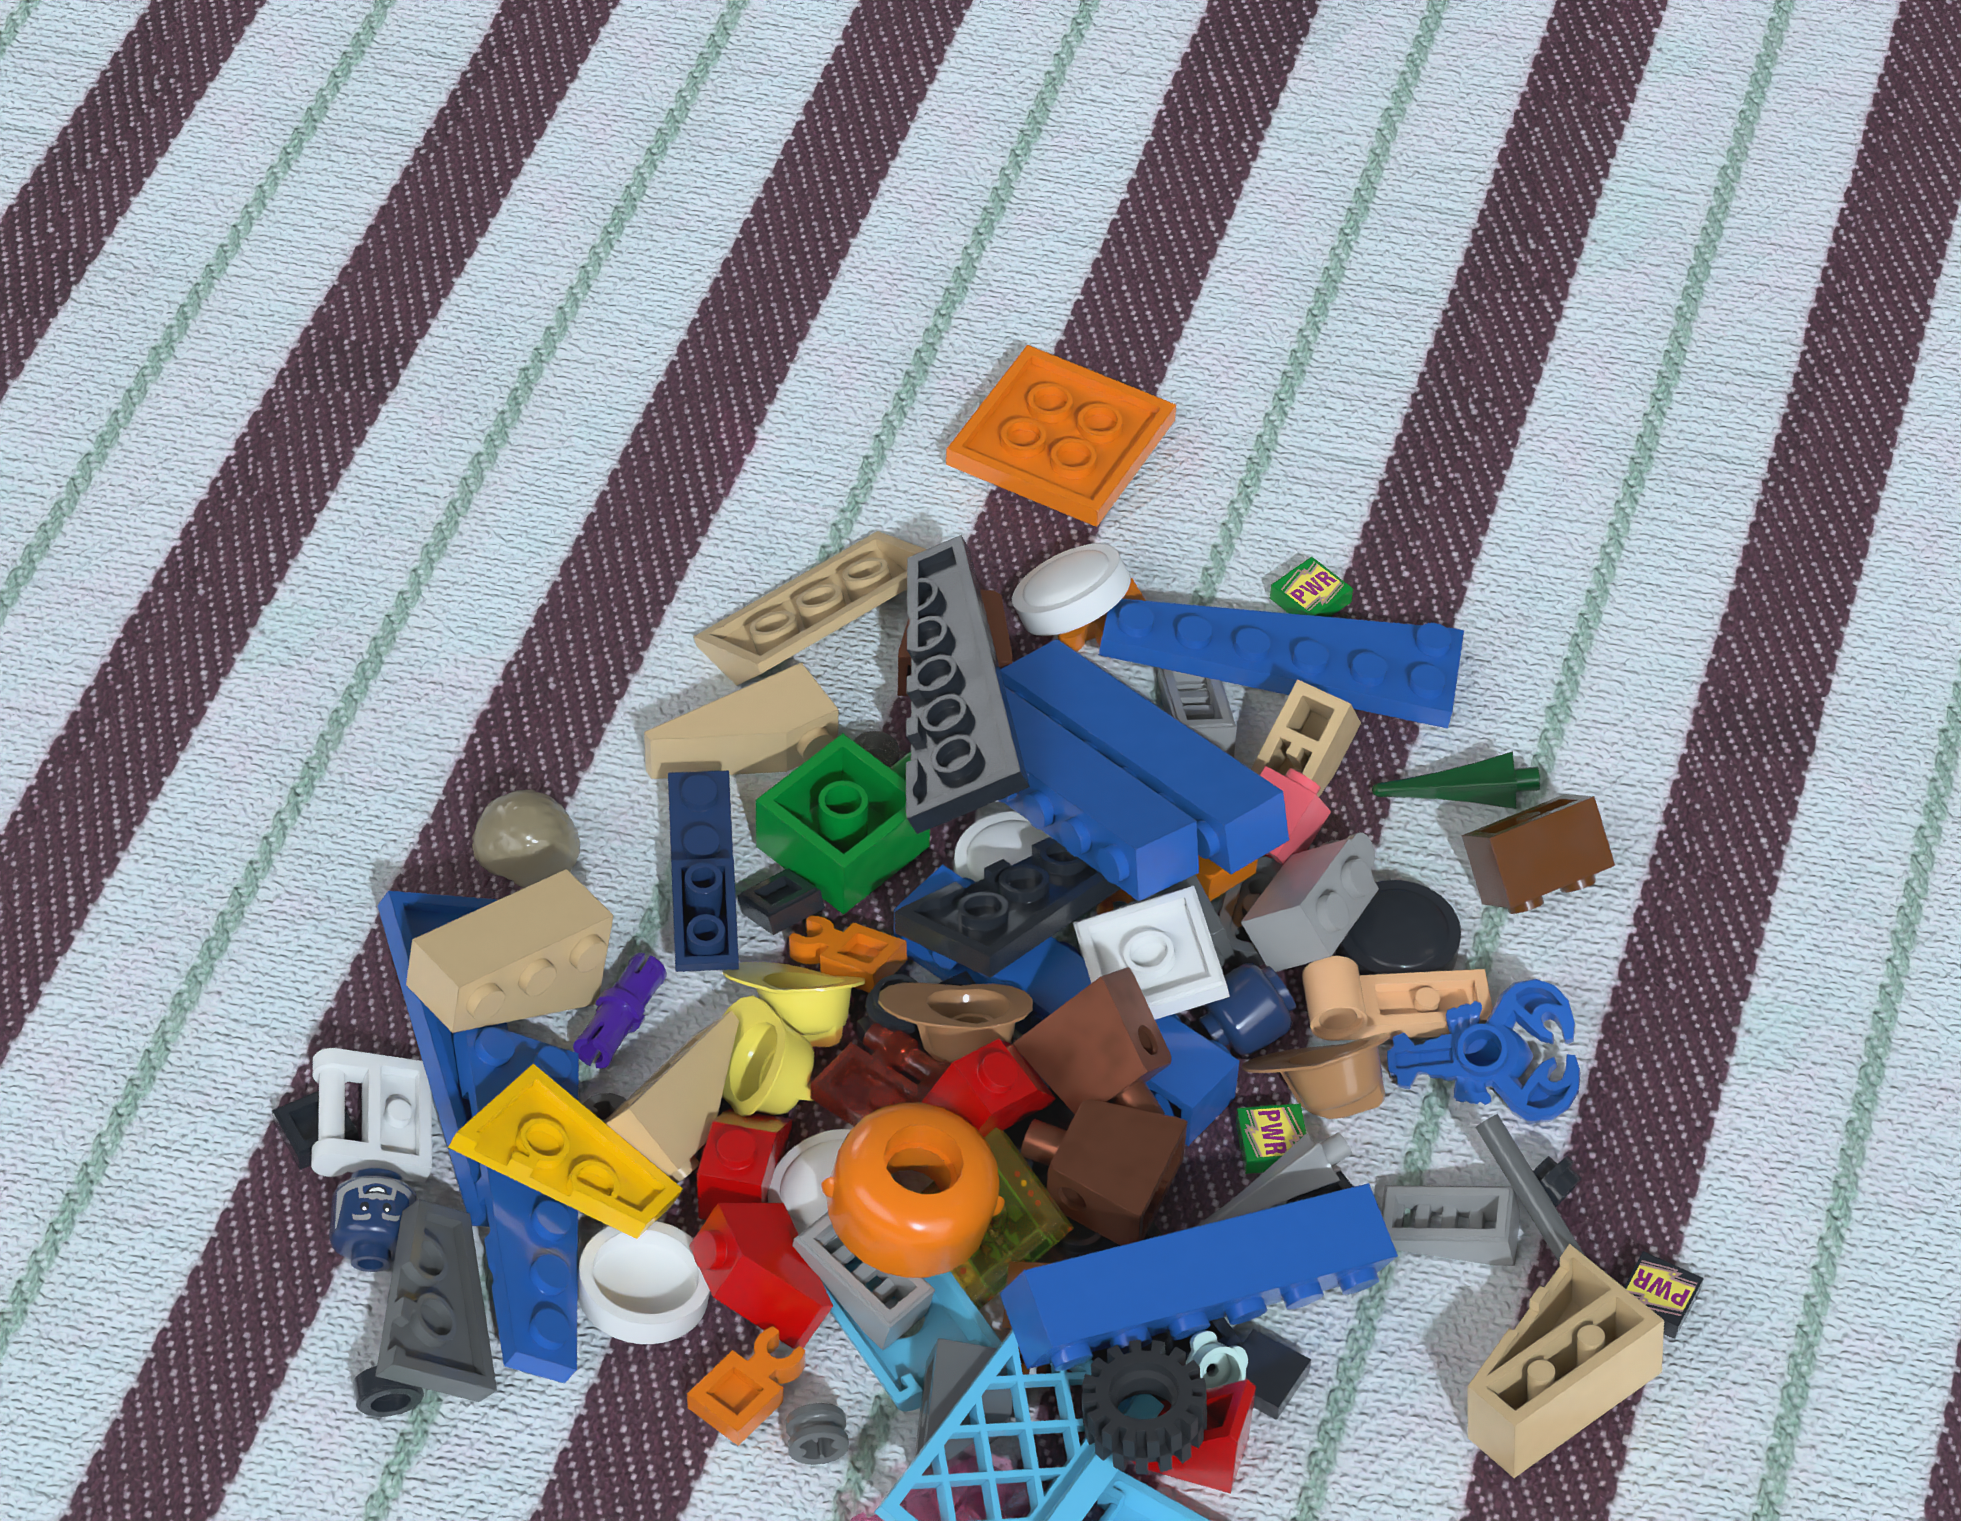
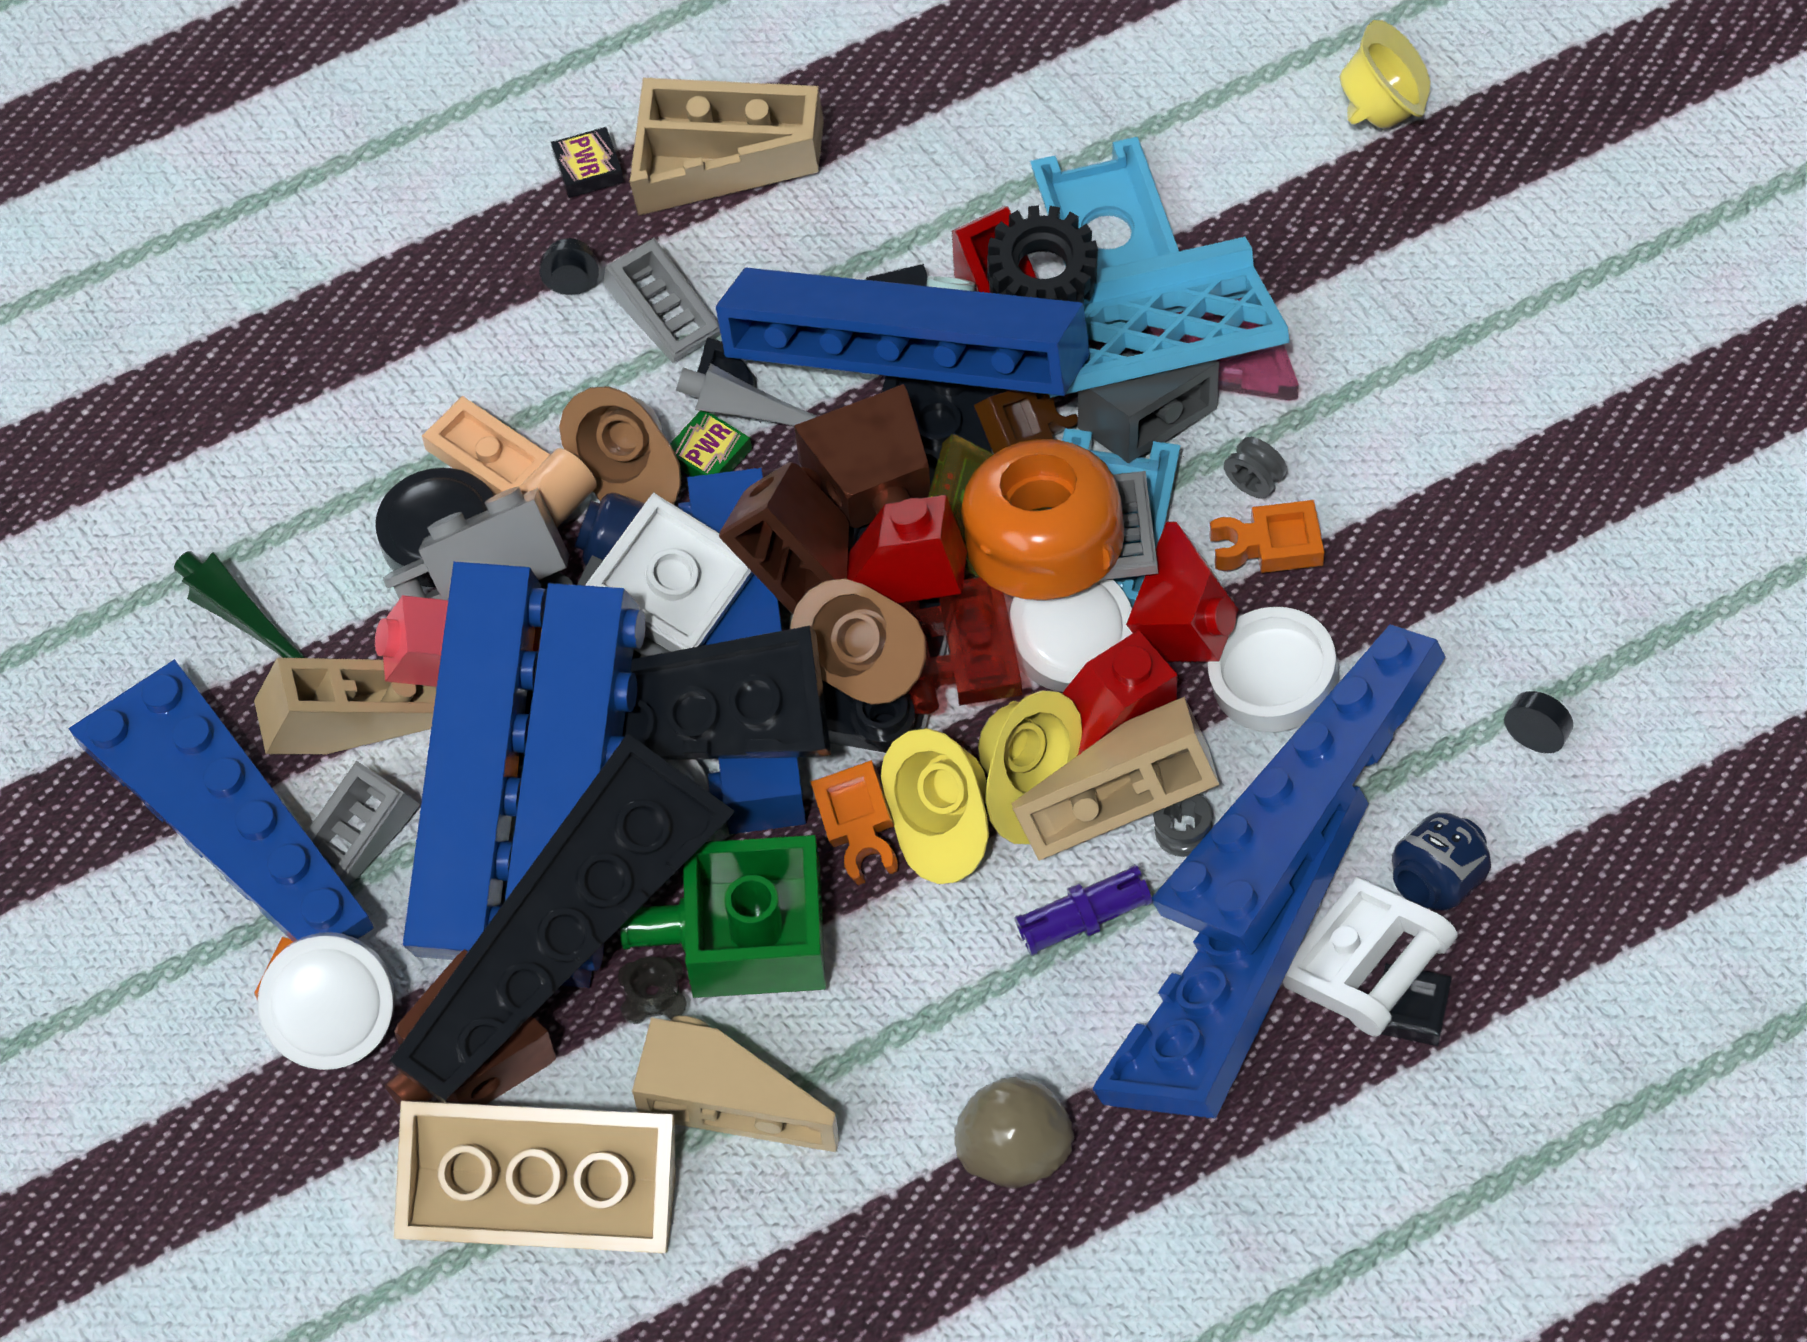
camera: 130 degrees left, 10 degrees up
(435, 1307) = (1457, 738): dark grey wing -> none
(514, 957) = (1161, 944): tan wedge -> none
(567, 1153) = (1265, 762): yellow wing -> none
(702, 871) = (912, 969): dark blue slope -> none
(780, 901) = (862, 911): black tile -> none
(1061, 435) = (132, 1199): orange plate -> none
(1311, 590) = (130, 870): tile -> none
(1496, 1055) = (494, 380): blue animal -> none
(1526, 1186) = (603, 245): dark grey bar -> none
(1539, 852) = (272, 484): reddish brown brick -> none

